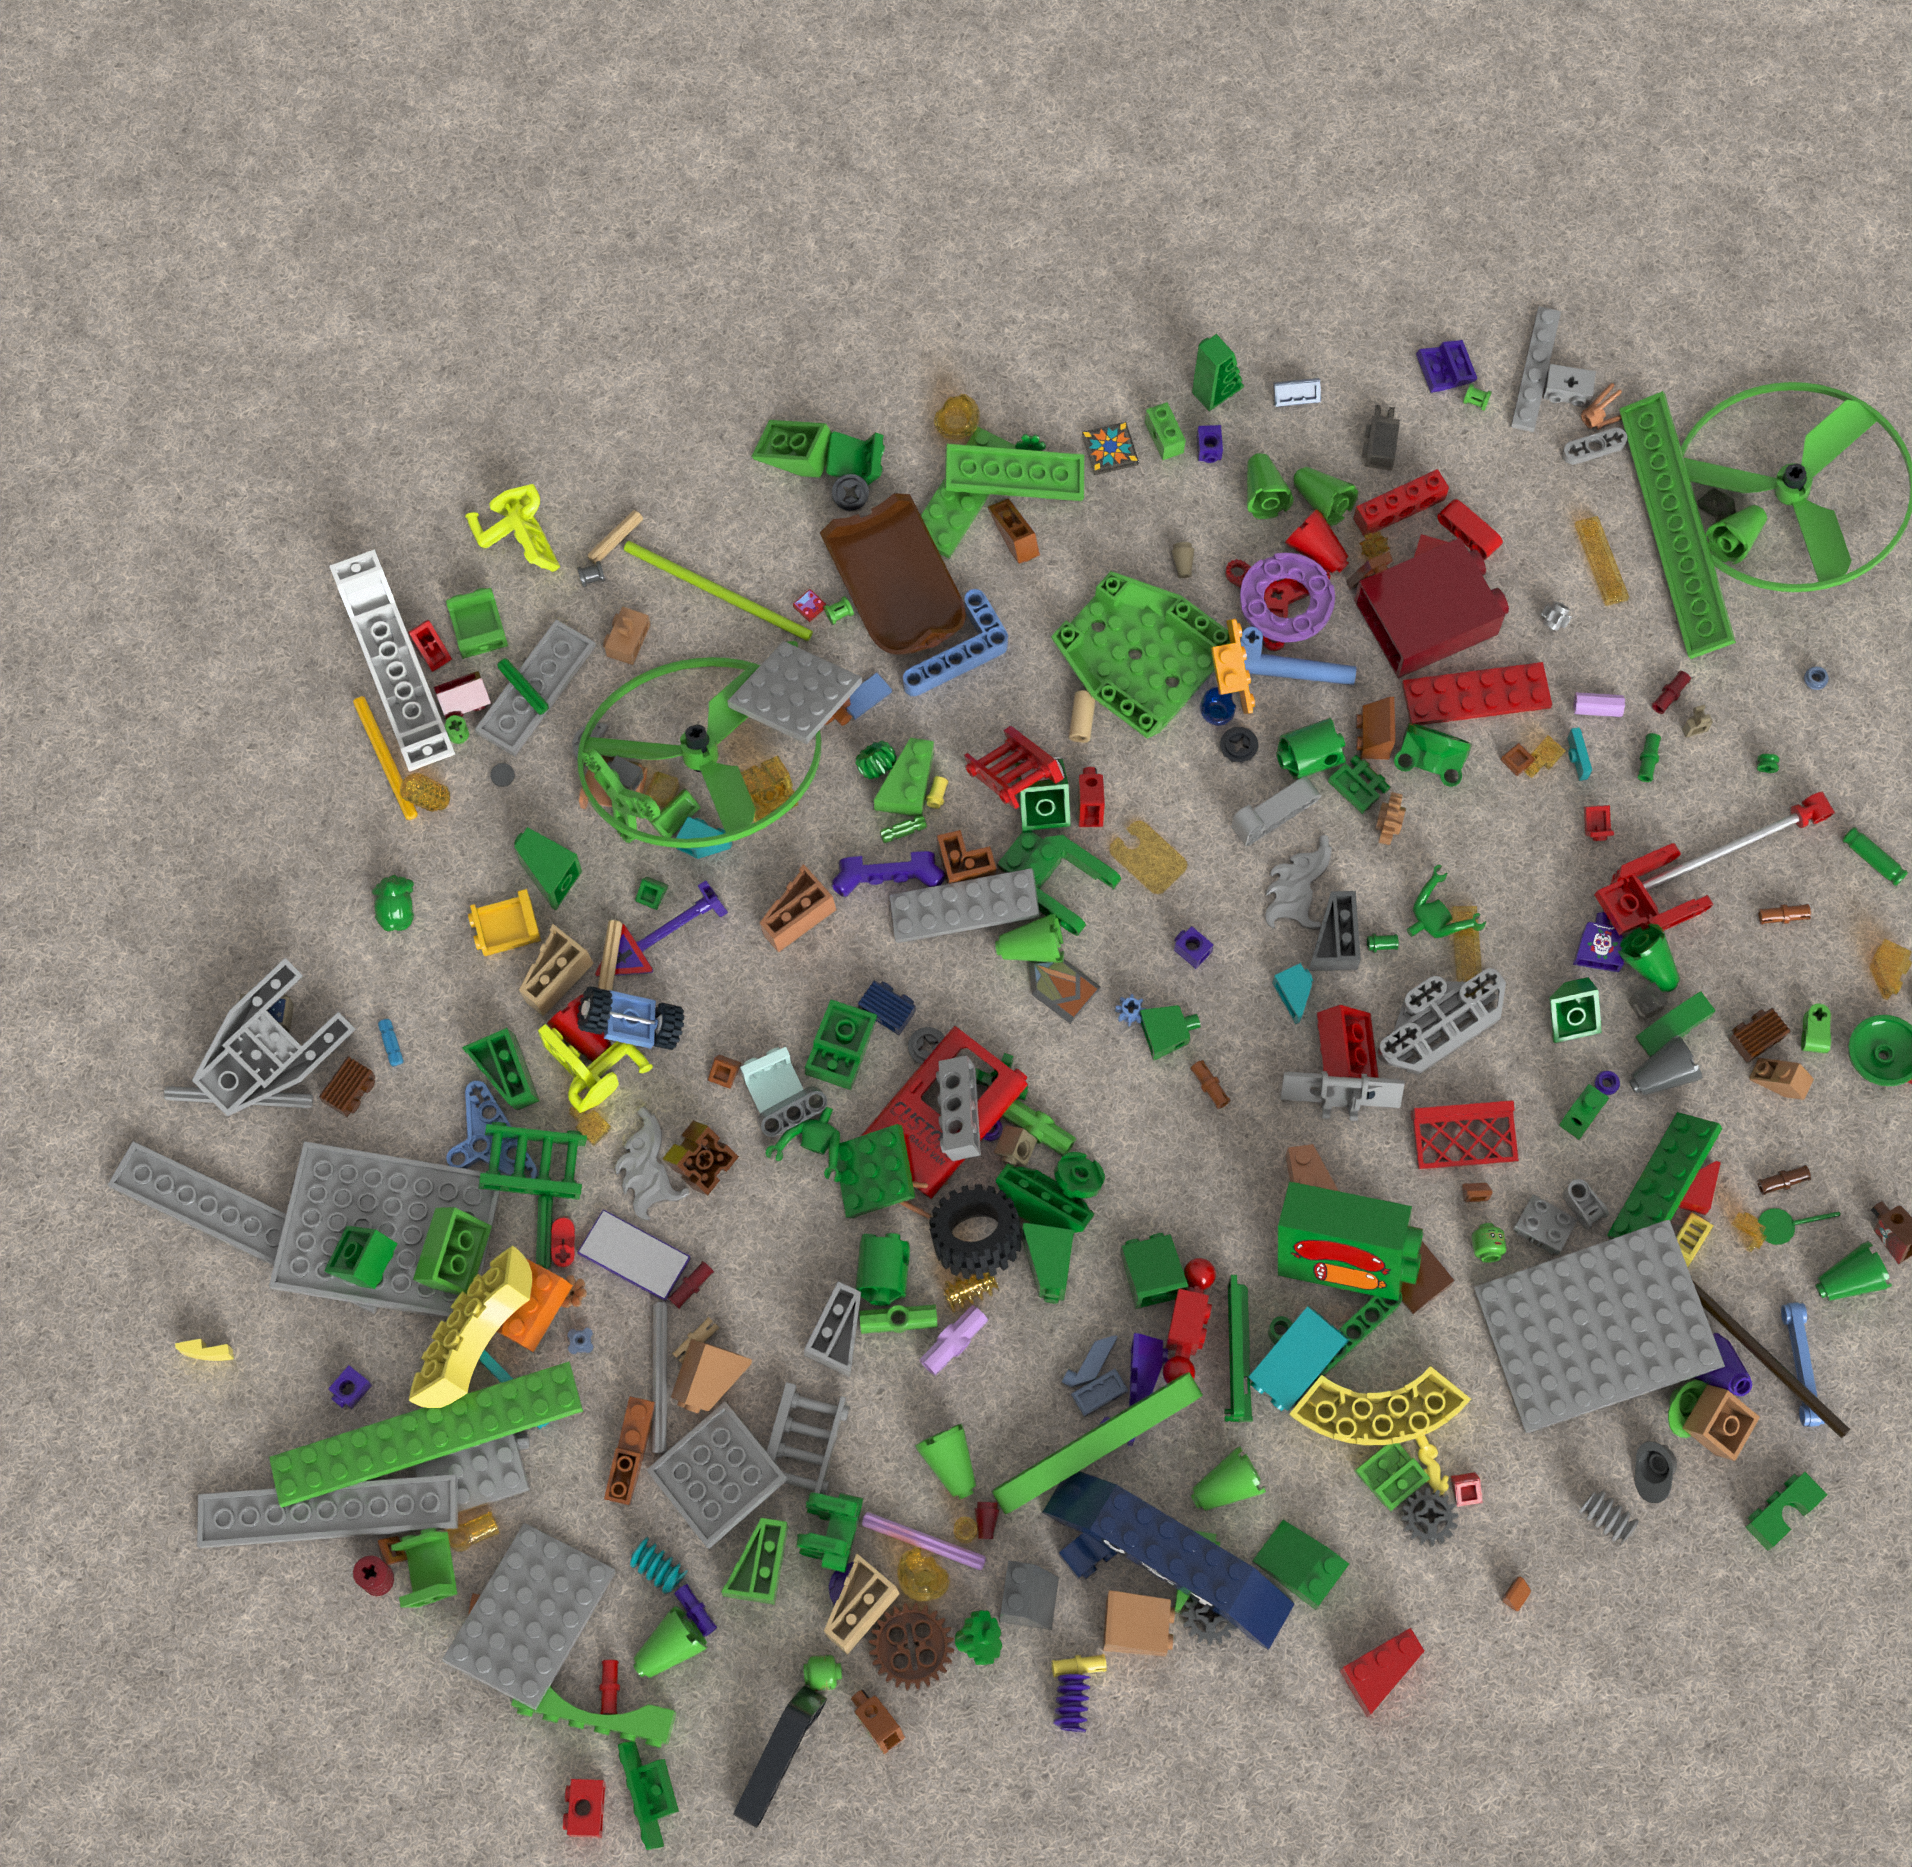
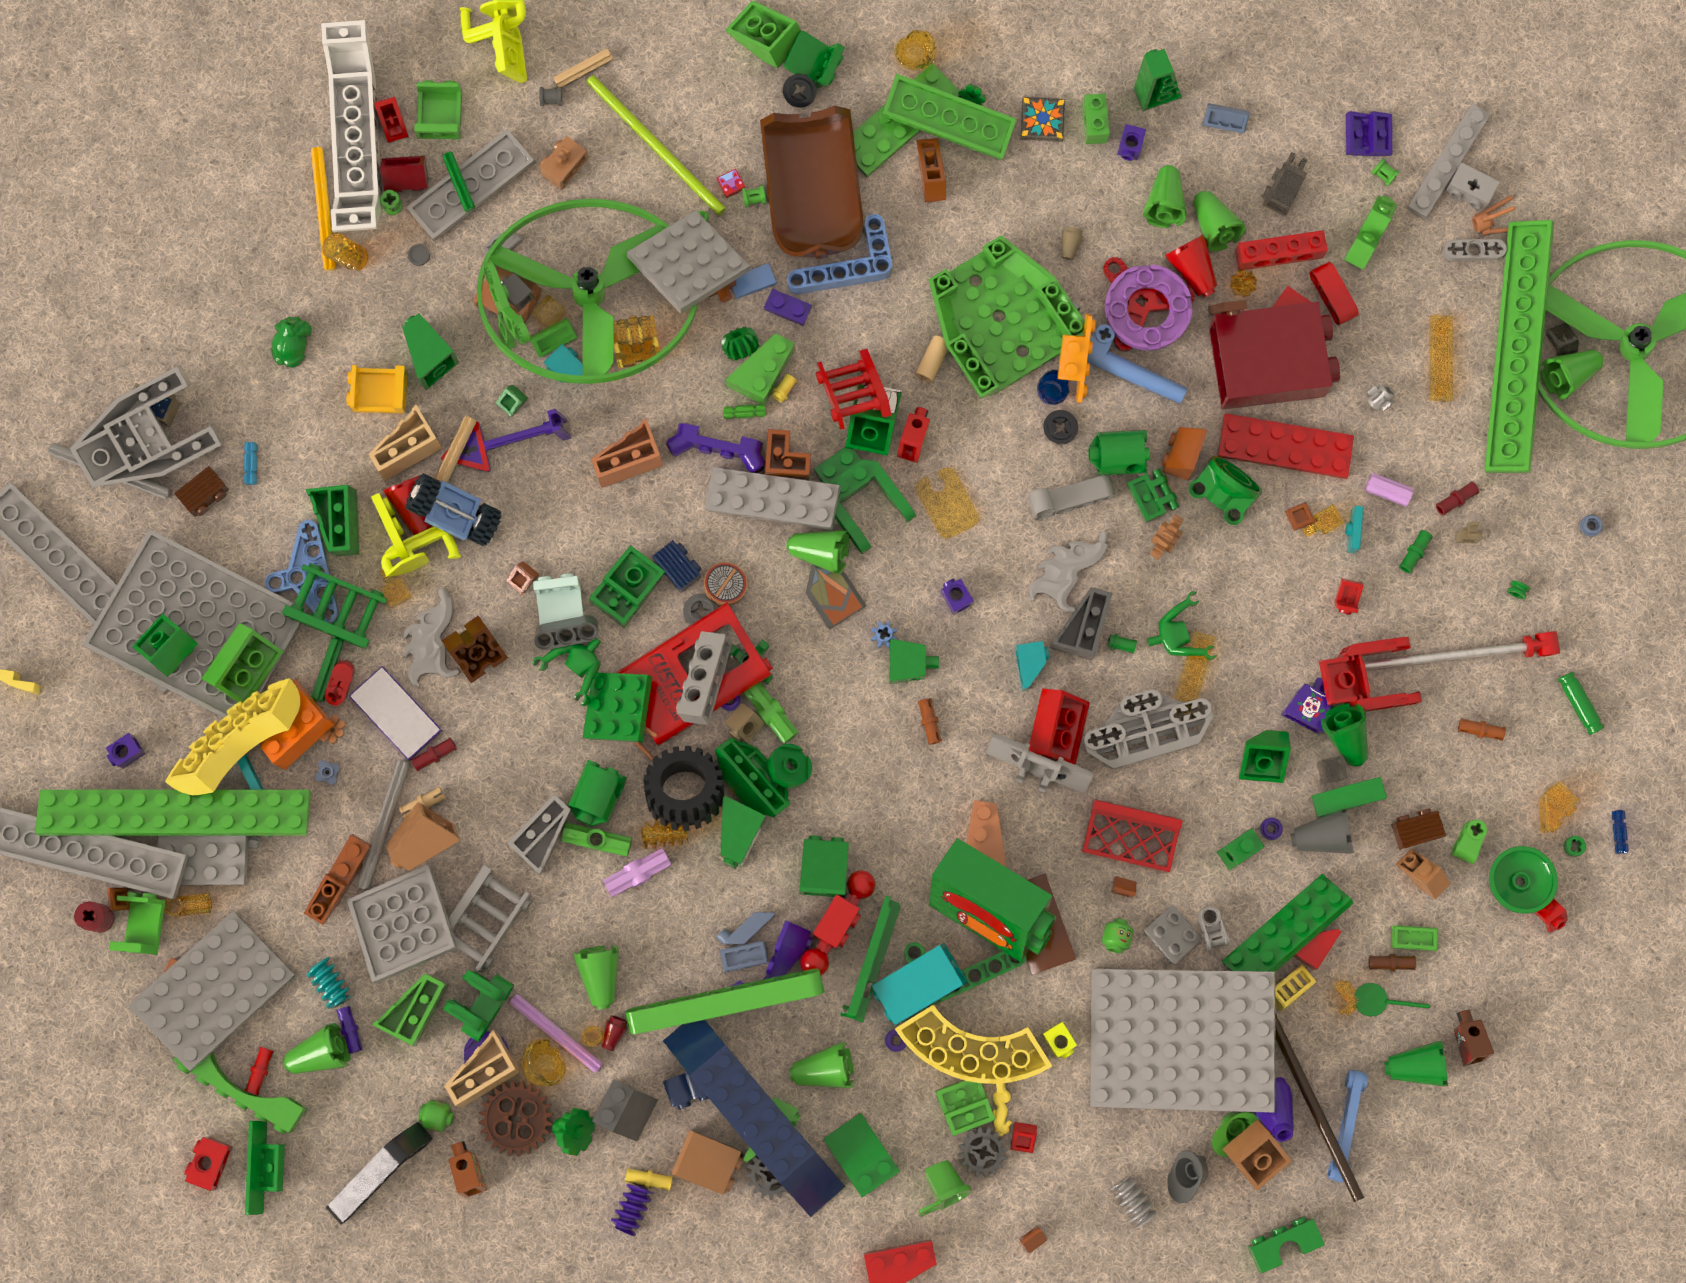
camera: 15 degrees right, 10 degrees up
(912, 711) = (787, 307): none -> dark purple plate
(943, 1009) = (725, 583): none -> tile
(1293, 1437) = (888, 1041): none -> dark purple plate
(1403, 1567) = (945, 1185): none -> bright green container
(1464, 1361) = (1050, 1036): none -> neon yellow brick
(1485, 458) = (1371, 231): none -> bright green arch
(1797, 1147) = (1414, 938): none -> bright green plate

